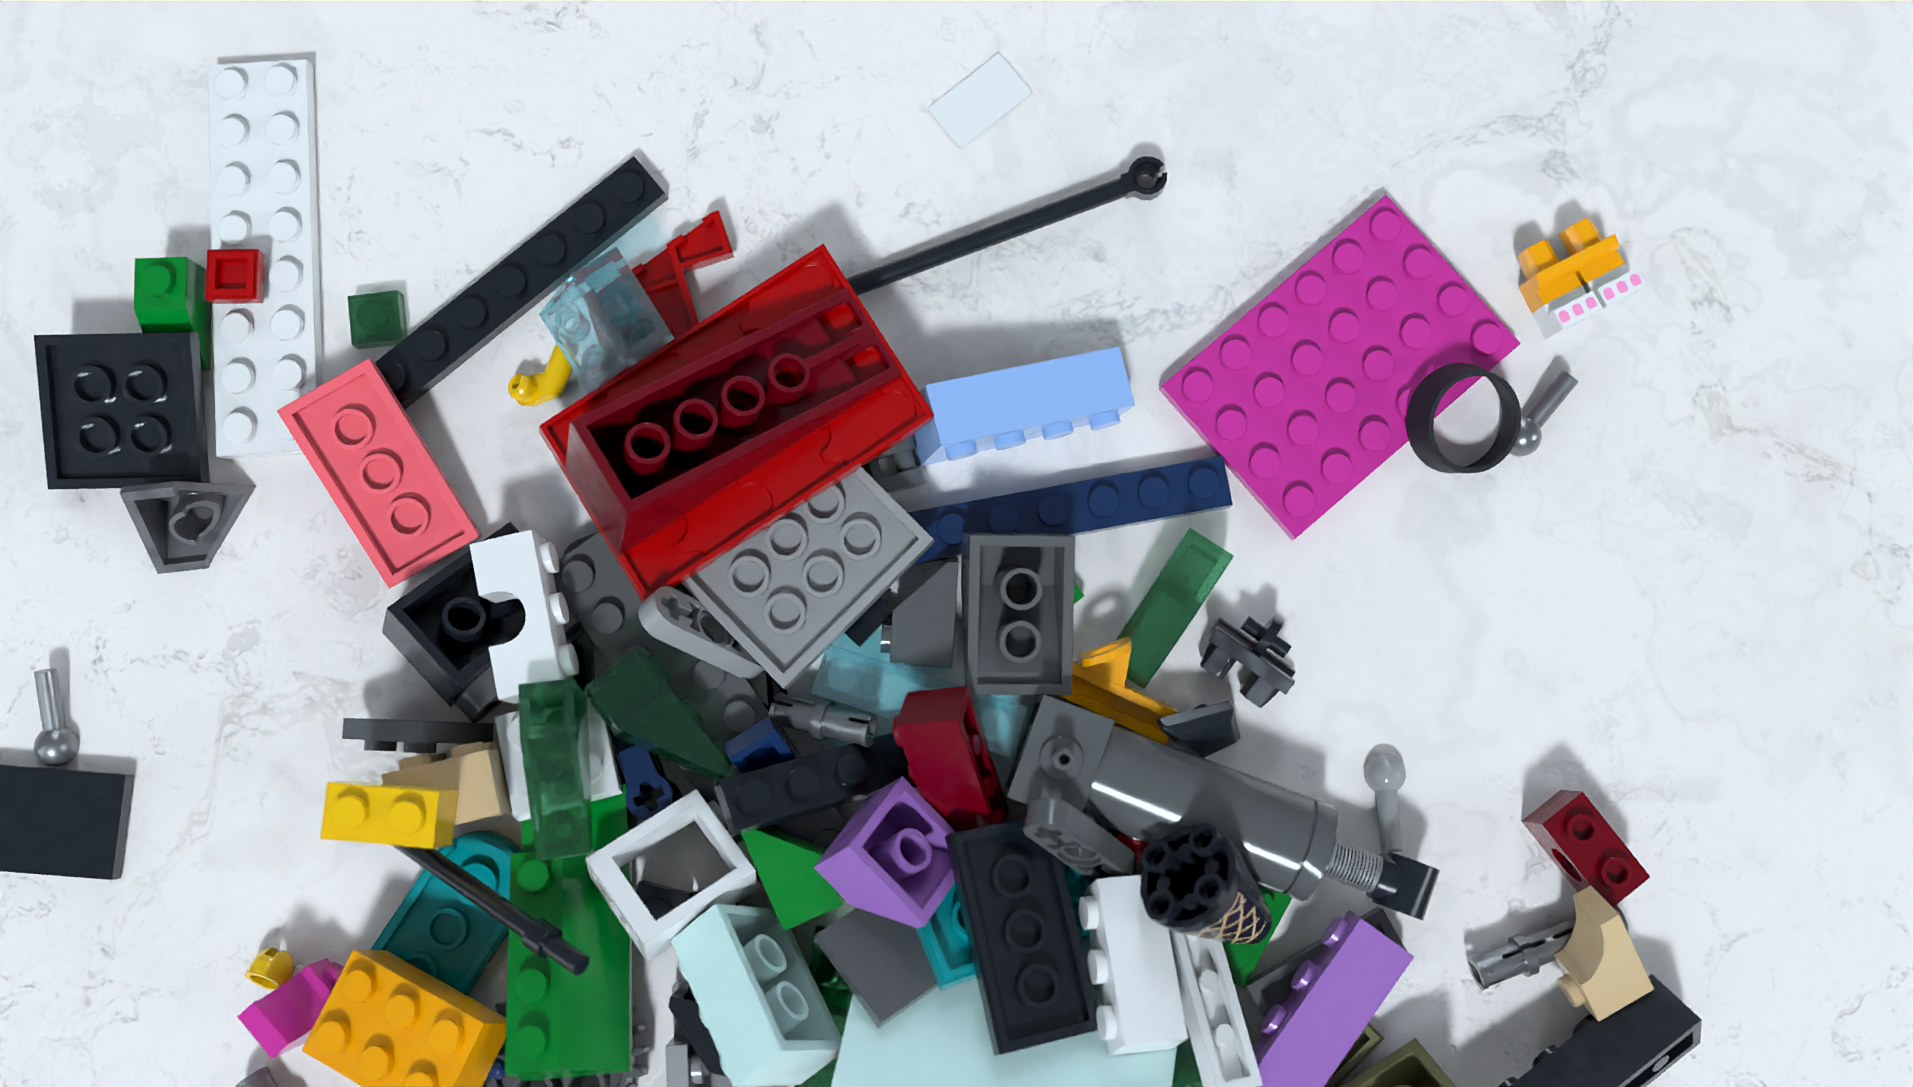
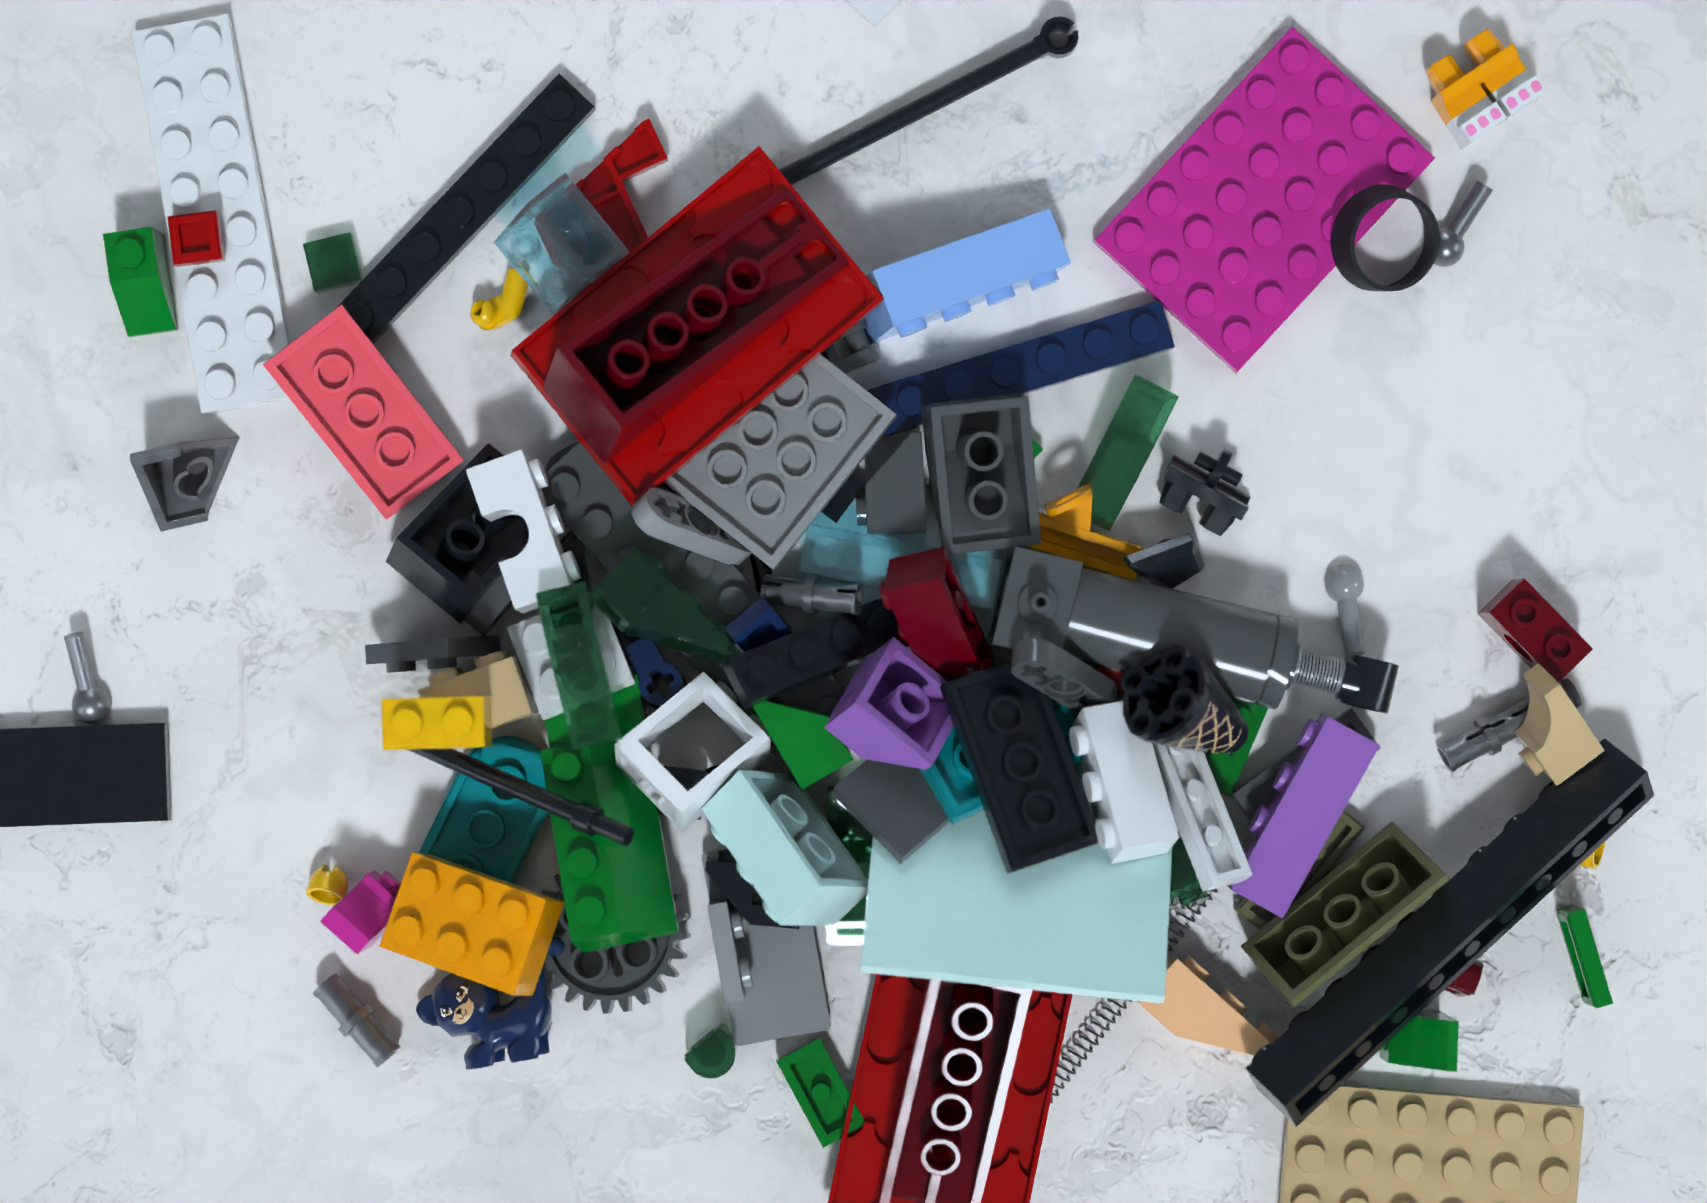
camera: 10 degrees left, 5 degrees up
(121, 409) = (108, 379): black plate -> none

